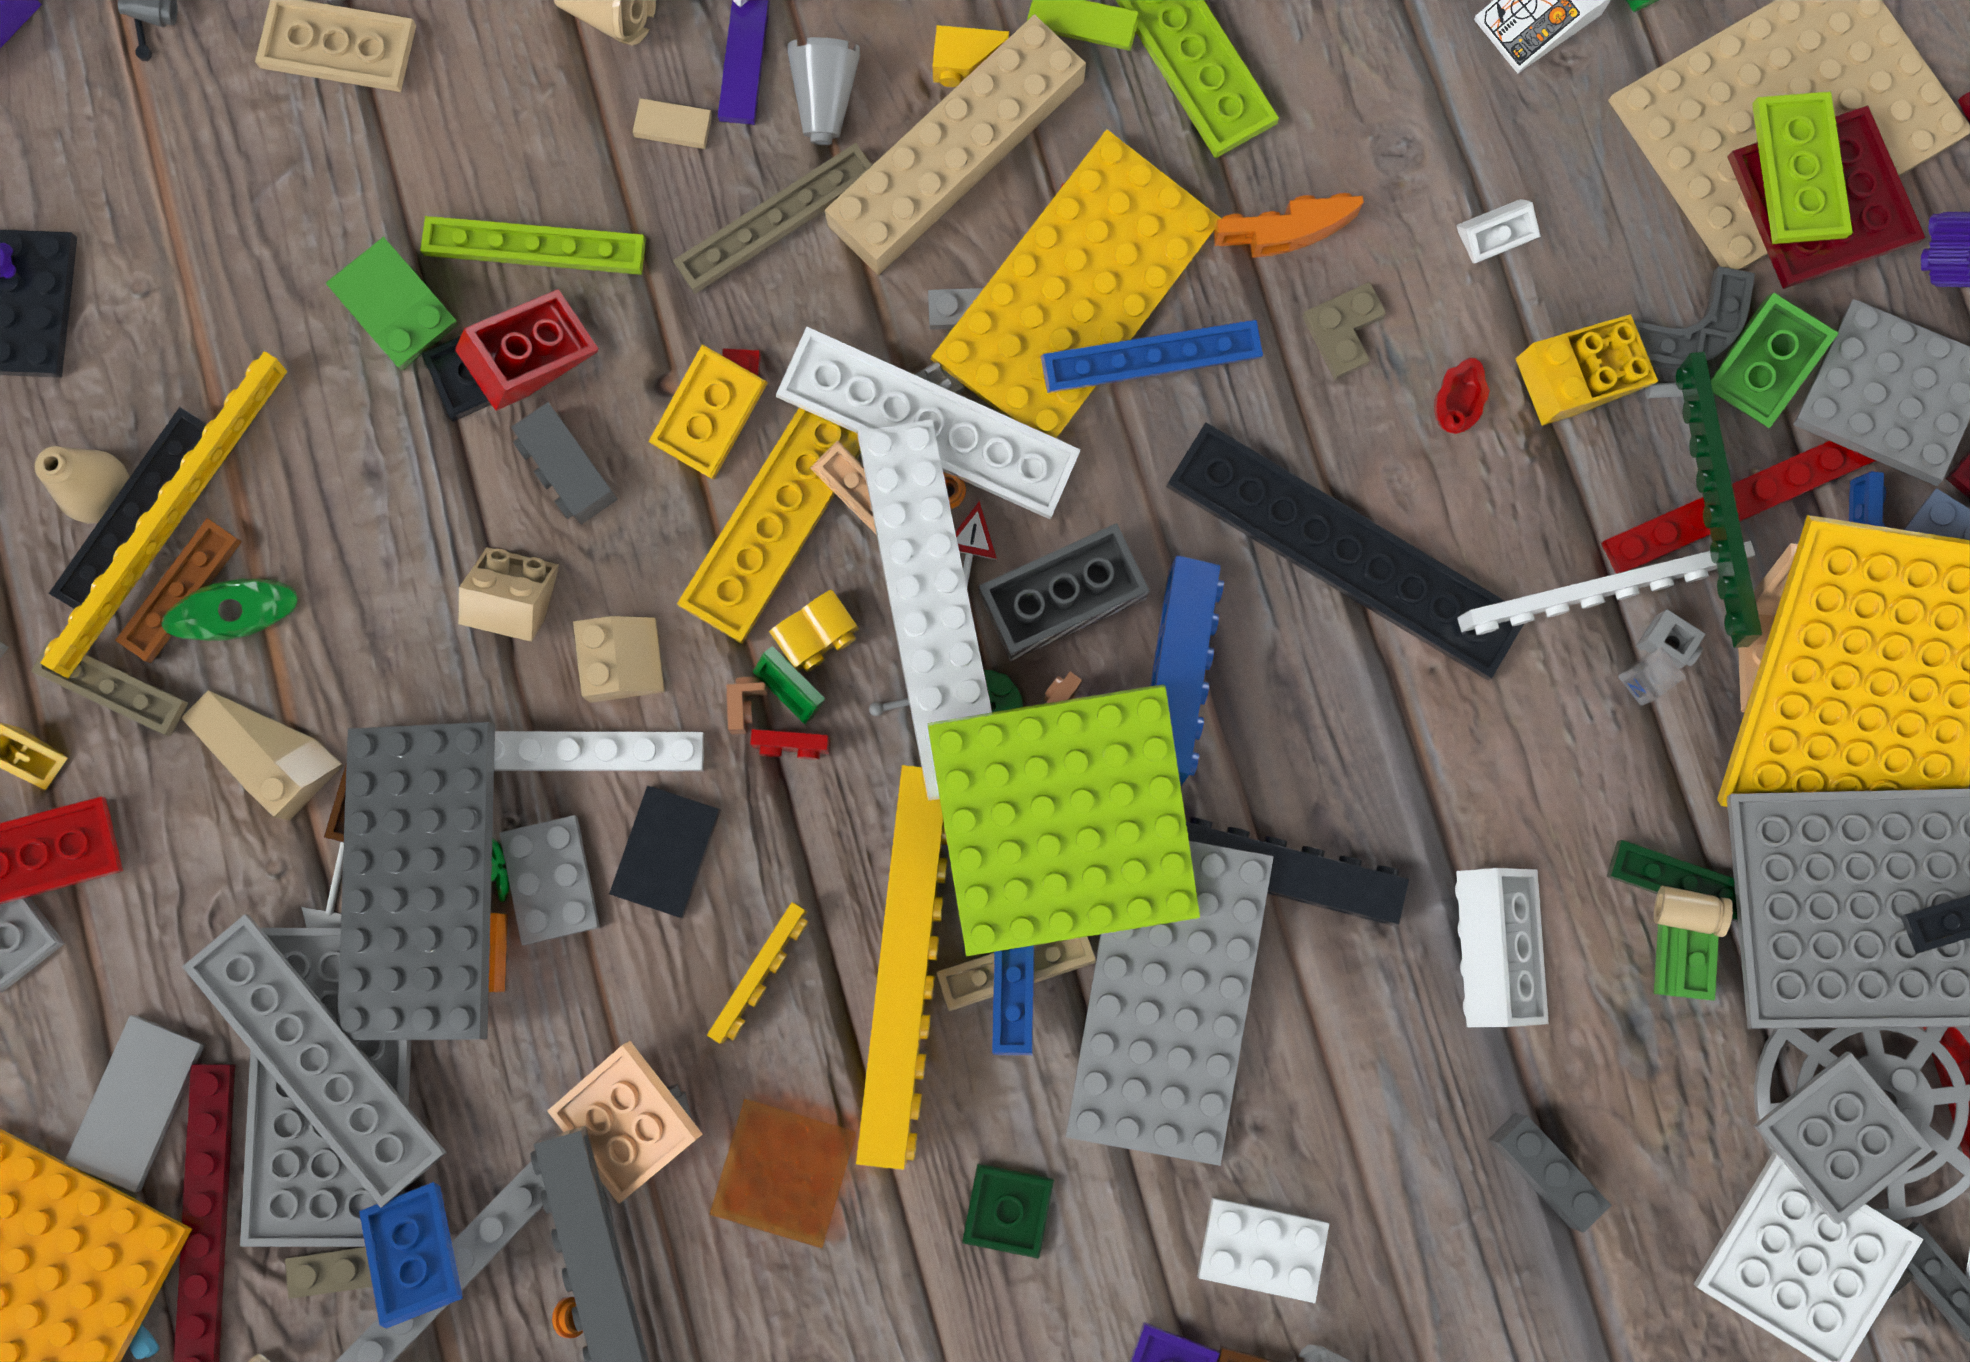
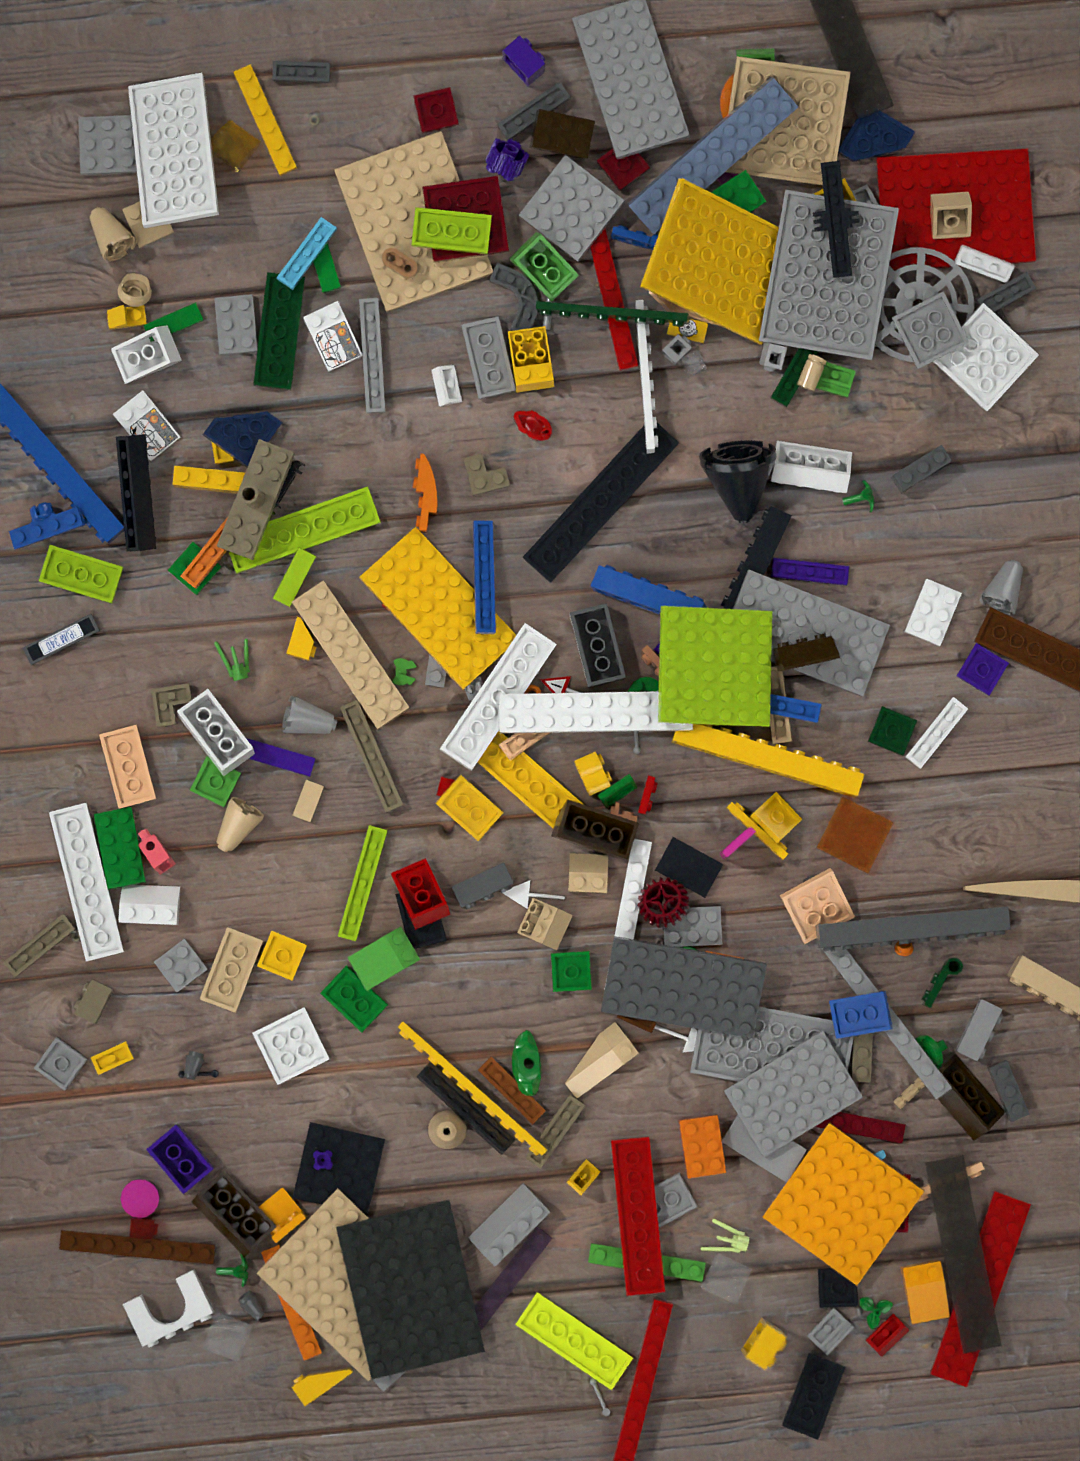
camera: 85 degrees left, 5 degrees up
(112, 978) = (702, 1146): none -> orange brick
(208, 173) = (291, 1046): none -> white plate
(232, 1148) = (793, 1093): none -> light grey plate
(299, 277) = (353, 1000): none -> green tile
(314, 1060) = (756, 1054): light grey plate -> none
(375, 126) = (282, 955): none -> yellow plate
(424, 661) = (571, 971): none -> green plate
(563, 542) = (521, 894): none -> white piece
(610, 802) = (679, 902): none -> dark red gear
(699, 651) = (595, 830): none -> dark brown slope
(719, 933) = (737, 842): none -> dark pink tile
(789, 1006) = (776, 817): none -> yellow plate
(932, 246) = (400, 672): none -> bright green piece
(1021, 1304) = (936, 732): none -> white plate
(1129, 1001) = (805, 652): none -> dark brown slope
(1293, 984) = (810, 571): none -> dark purple tile
(1455, 804) = (739, 474): none -> black cone
(1471, 1065) = (866, 494): none -> green plant
(1523, 84) = (372, 355): none -> light grey plate
(1570, 292) = (488, 358): none -> light grey plate
(1710, 96) = (400, 263): none -> medium nougat plate
(1715, 835) = (778, 355): none -> light grey brick
(1719, 663) = (694, 331): none -> yellow slope

